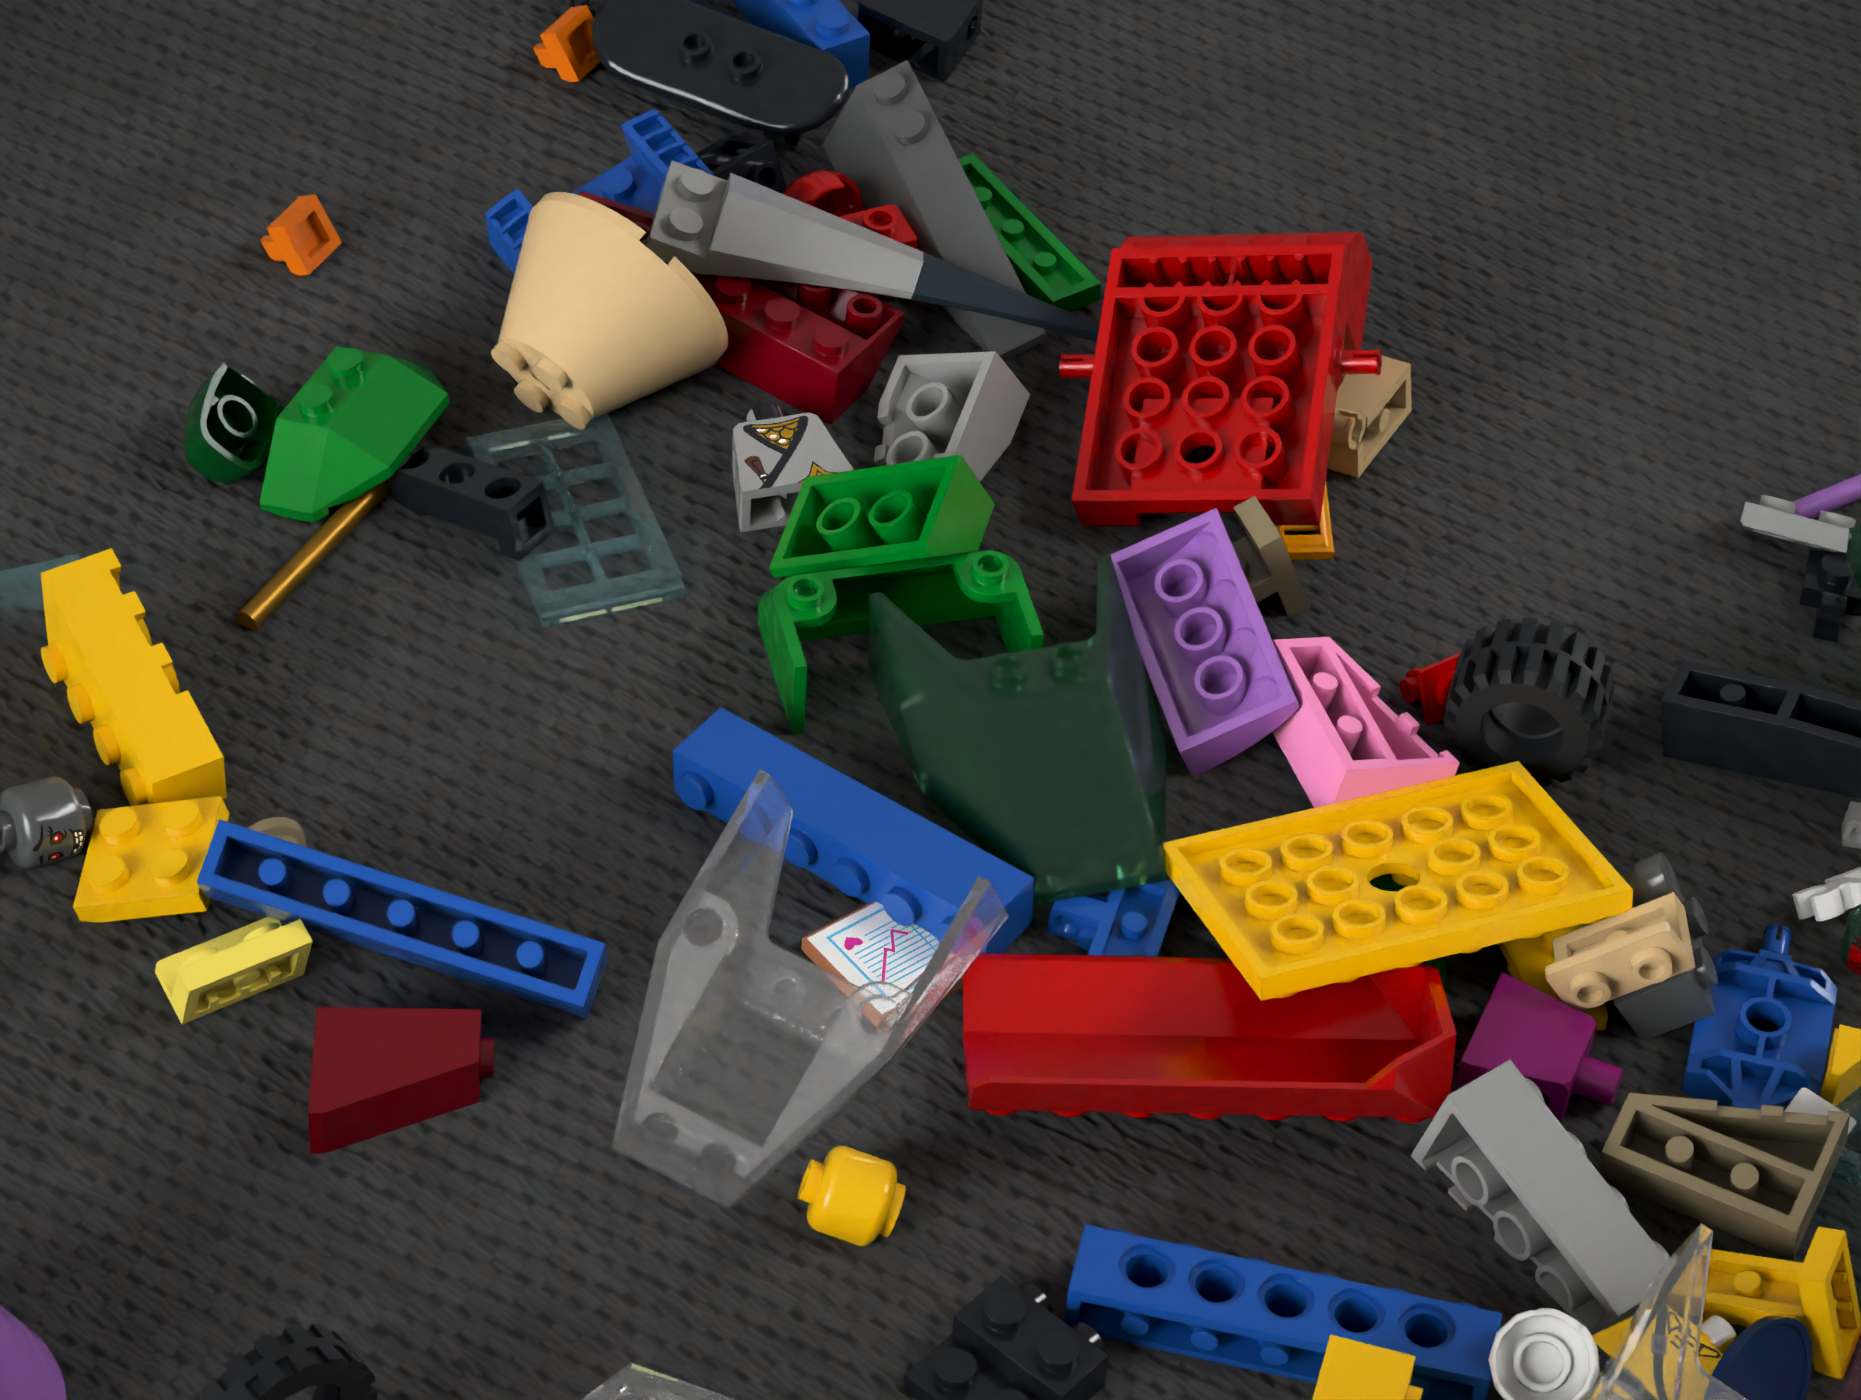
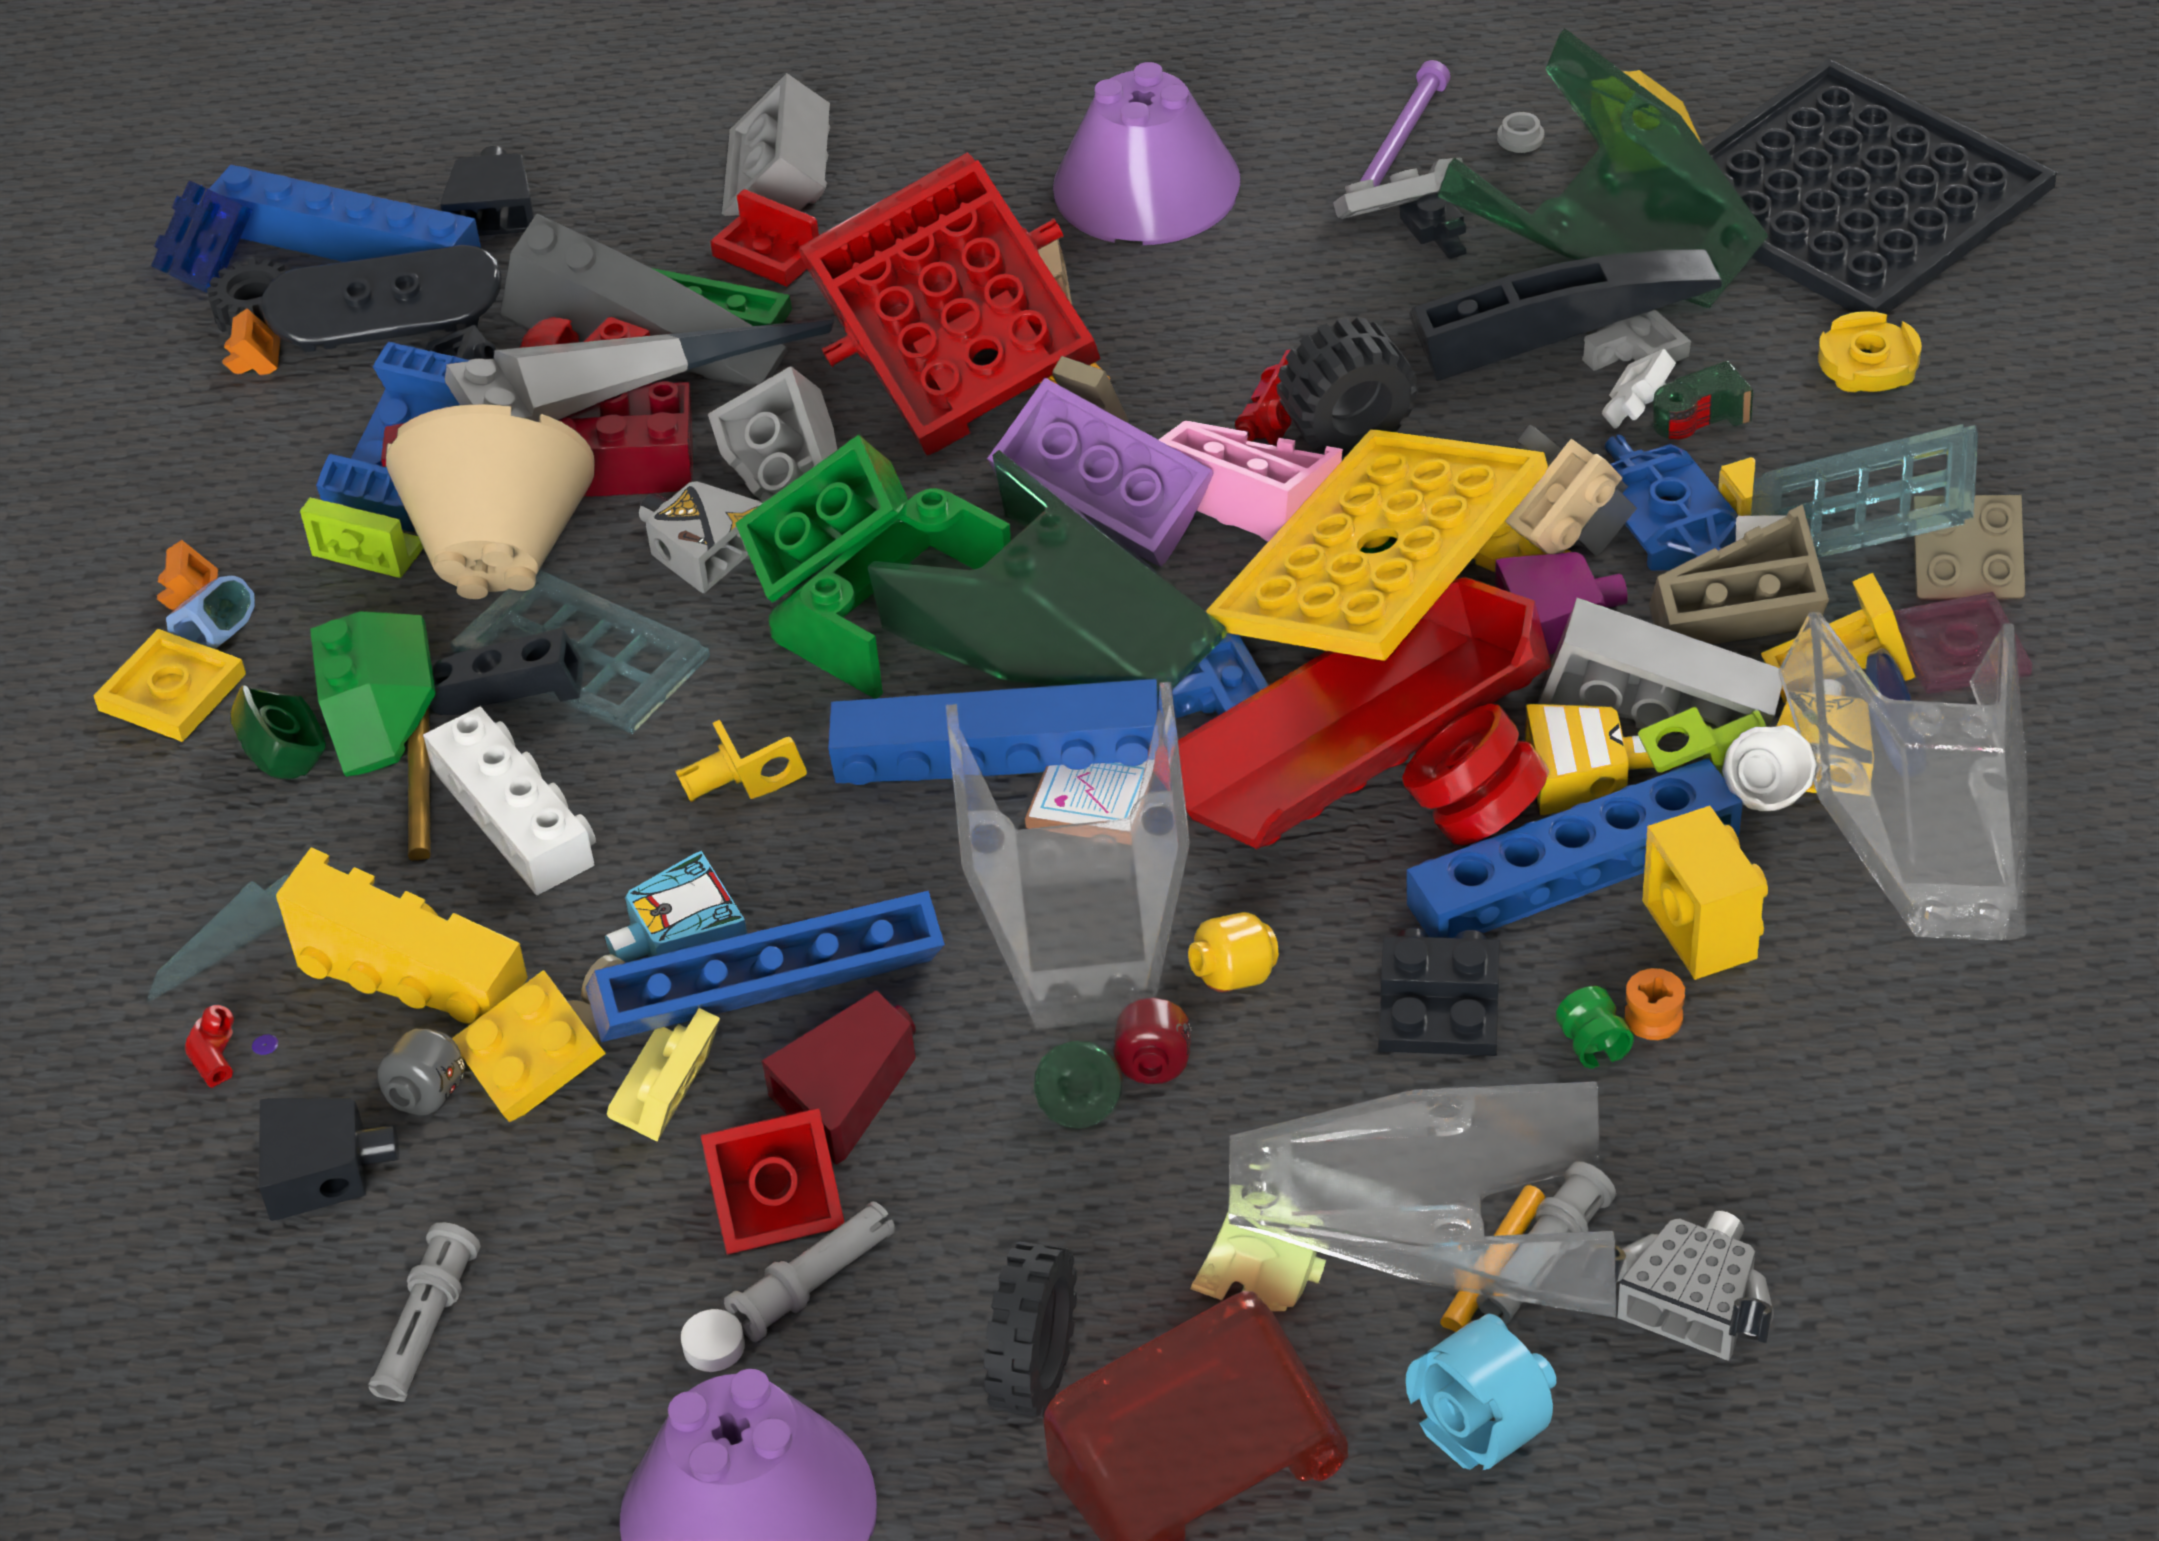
camera: 30 degrees left, 0 degrees up
(42, 1238) = (712, 1340): none -> white tile
(145, 1232) = (789, 1284): none -> light grey pin
(191, 327) = (170, 685): none -> yellow plate
(225, 1127) = (772, 1180): none -> red slope
(285, 282) = (213, 612): none -> medium blue rock
(362, 620) = (510, 800): none -> white brick
(395, 823) = (677, 912): none -> torso
(469, 281) = (358, 538): none -> lime bracket
(579, 1223) = (1078, 1084): none -> clear green plate
(591, 714) = (727, 766): none -> yellow bracket
(691, 1229) = (1155, 1036): none -> dark red head
(1134, 205) = (766, 238): none -> red bracket
(1239, 134) = (779, 148): none -> light grey slope
(1241, 1174) = (1475, 774): none -> red wheel
(1391, 1227) = (1582, 752): none -> yellow torso
(1515, 1287) = (1701, 742): none -> lime bracket
(1583, 354) = (1145, 163): none -> medium lavender cone

